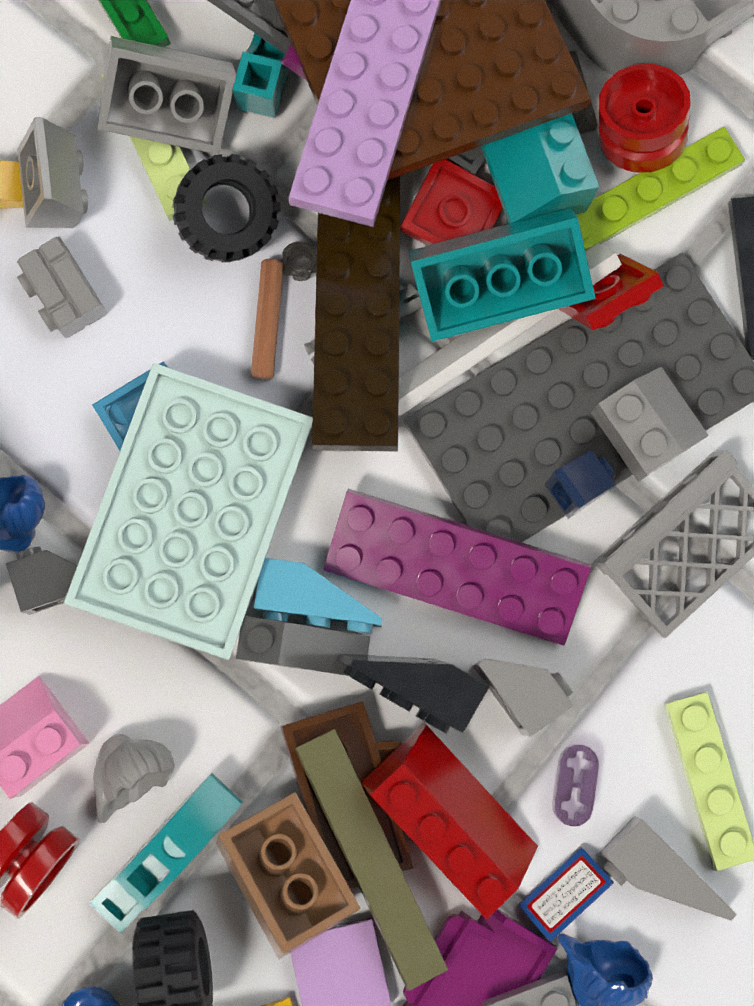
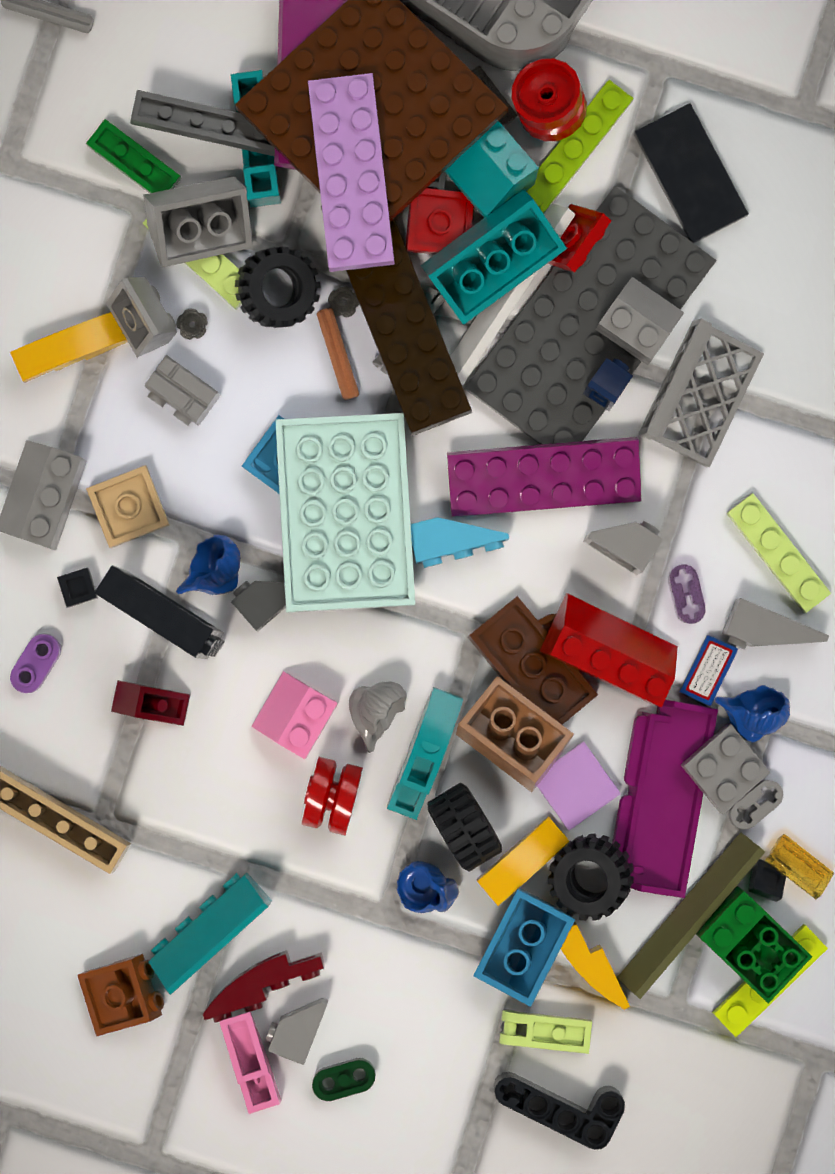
camera: 25 degrees left, 5 degrees up
(106, 205) = (184, 320): none -> clear smoke plate
(297, 645) = (460, 576): dark grey slope -> none
(371, 859) = (566, 699): olive tile -> none
(439, 689) = (565, 566): black slope -> none

